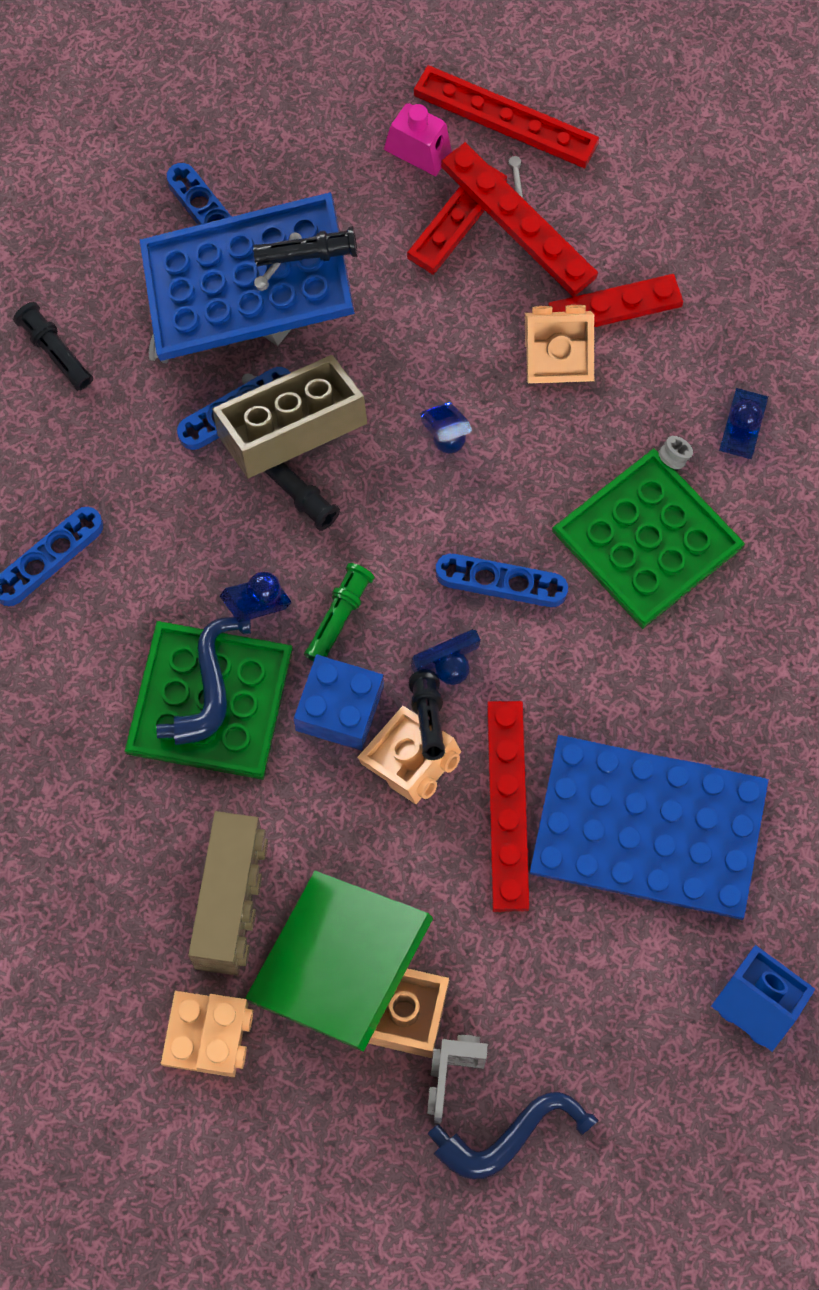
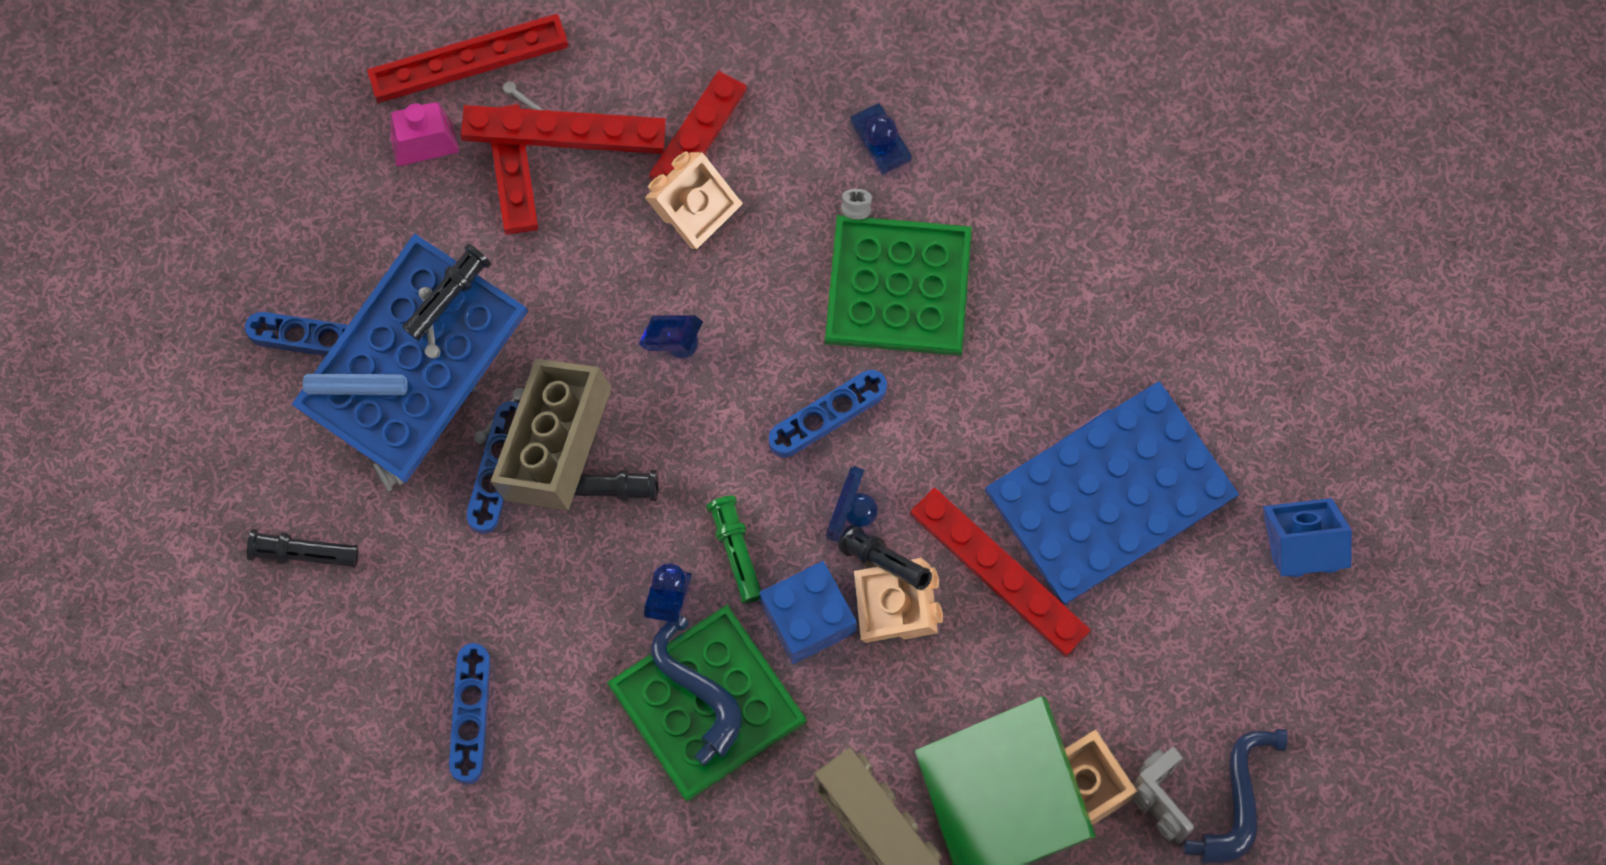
camera: 45 degrees left, 0 degrees up
(189, 261) = (355, 384): none -> medium blue axle

